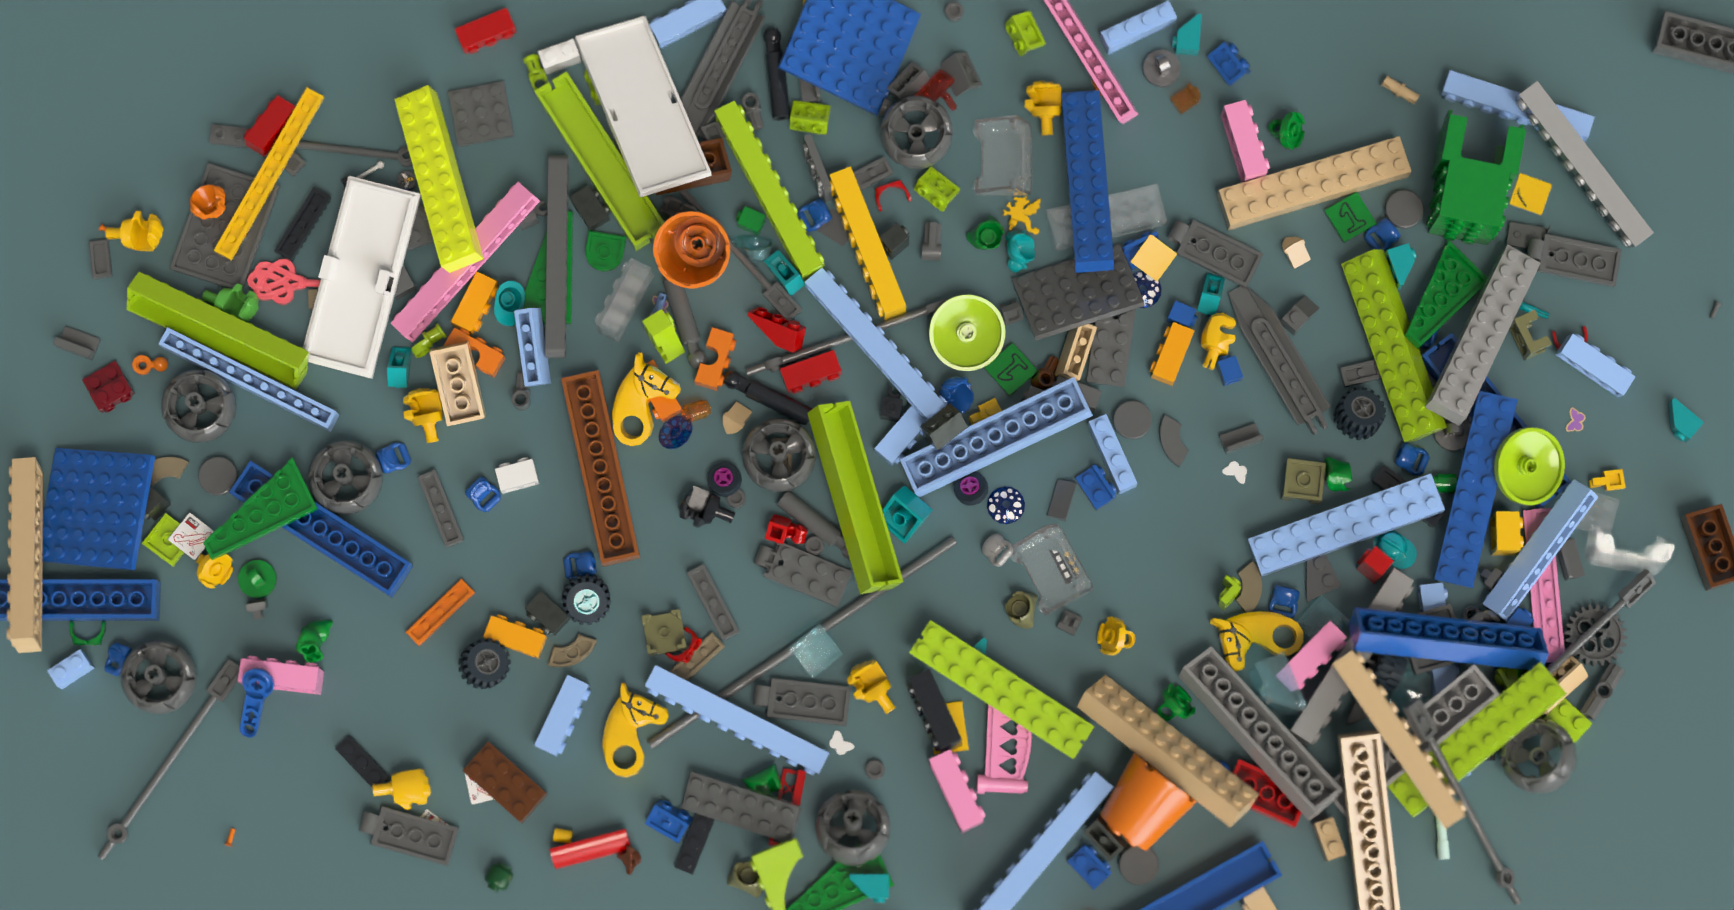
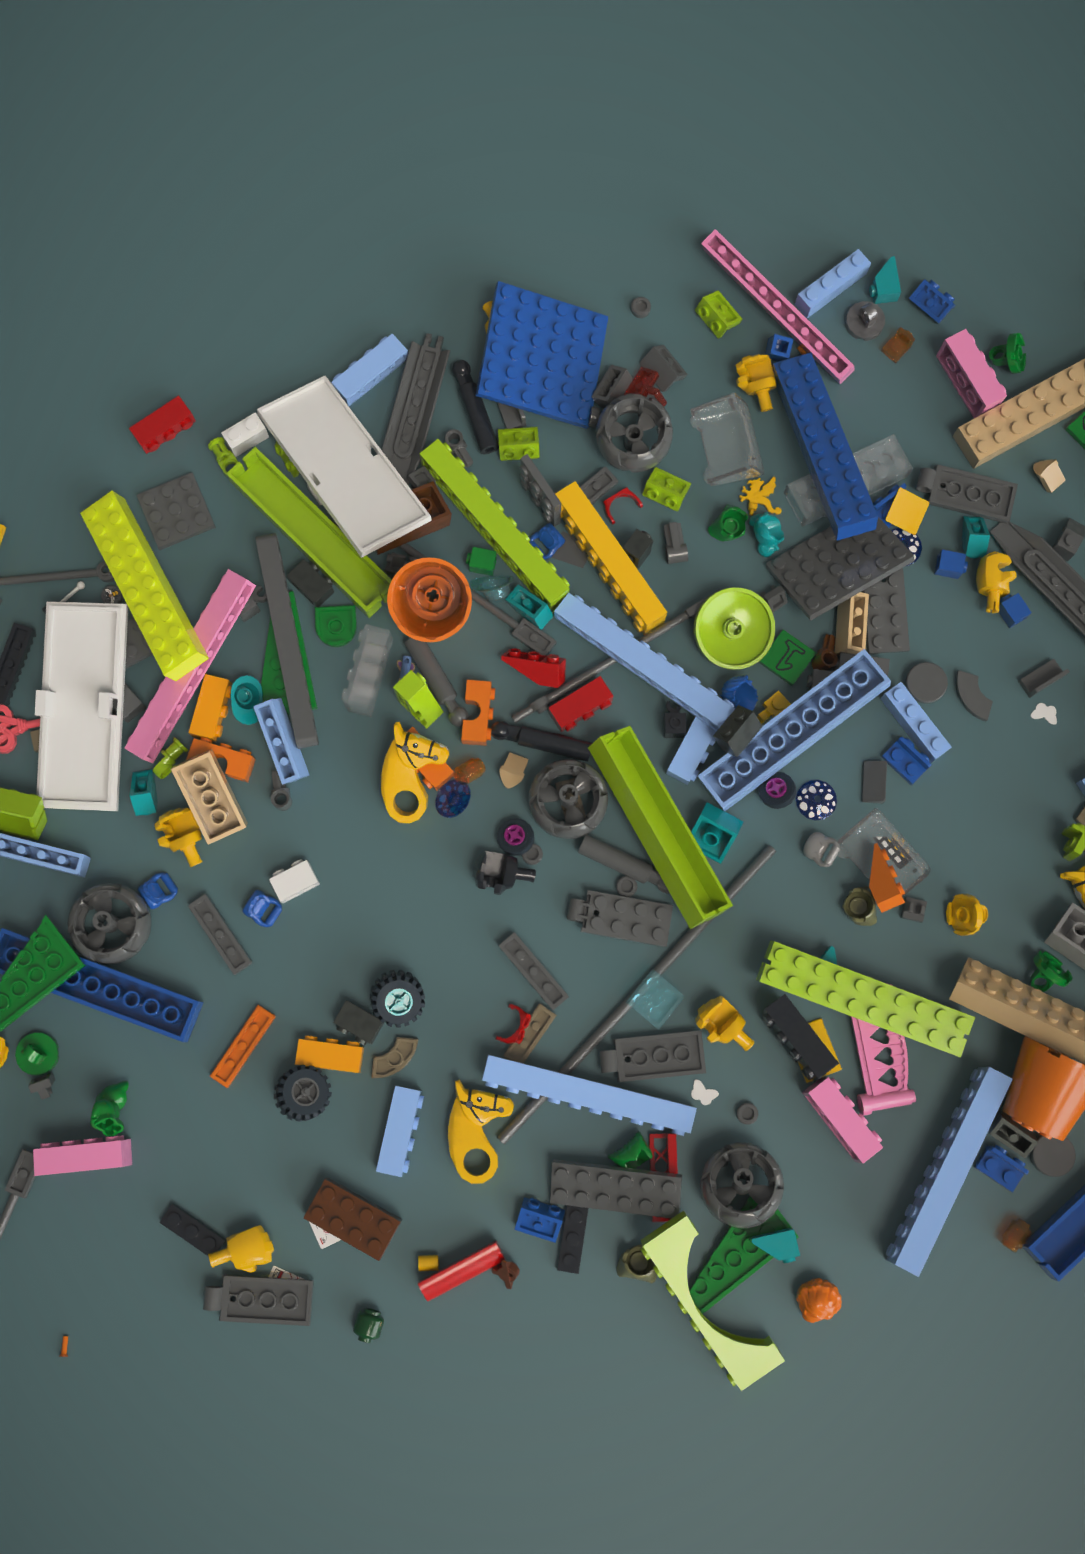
camera: 15 degrees left, 0 degrees up
(255, 698) = (57, 1176): blue beam -> none
(584, 563) = (387, 959): blue piece -> none
(600, 468) = (382, 854): dark orange brick -> none
(664, 633) = (489, 1015): olive panel -> none
(782, 528) = (589, 876): red brick -> none
(1043, 590) = (882, 881): none -> orange slope
(1071, 79) = (779, 347): none -> blue brick
(1171, 353) = (950, 605): light orange brick -> none

